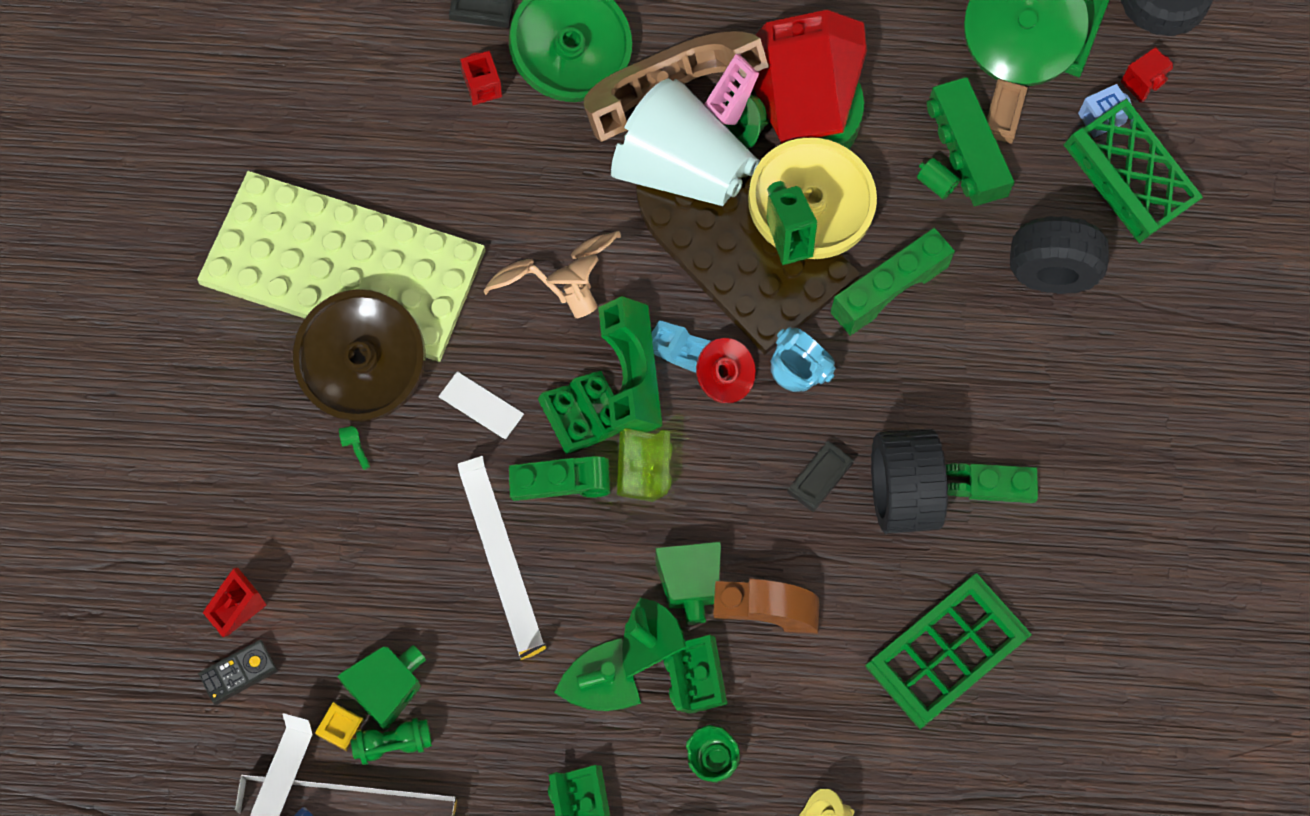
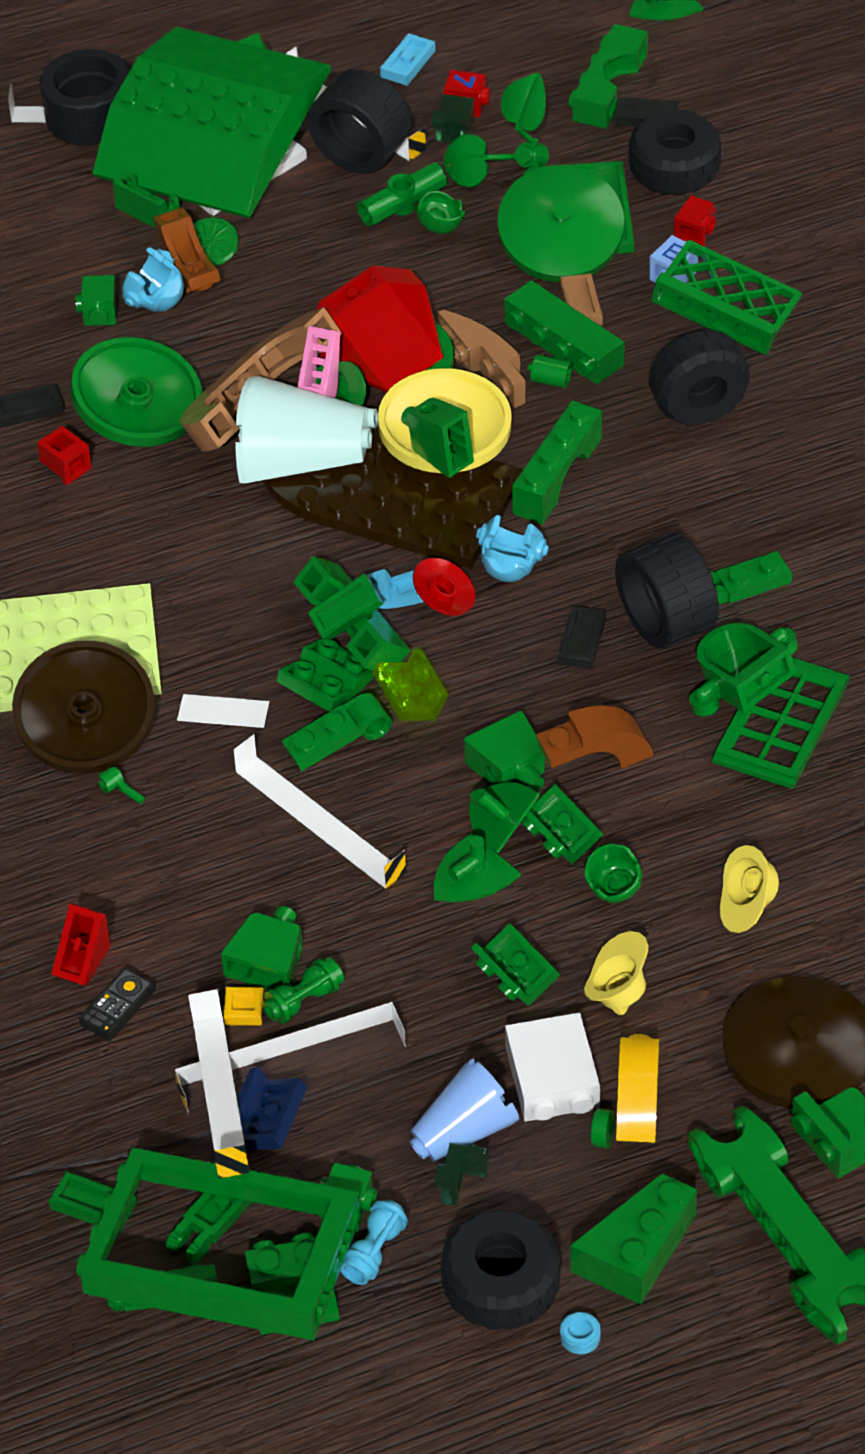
camera: 20 degrees left, 20 degrees down
(574, 275) = (265, 580): light nougat plant -> none
(627, 358) = (345, 607): none -> green tile
(889, 130) = (485, 351): none -> medium nougat slope
(939, 584) = (742, 666): none -> green piece

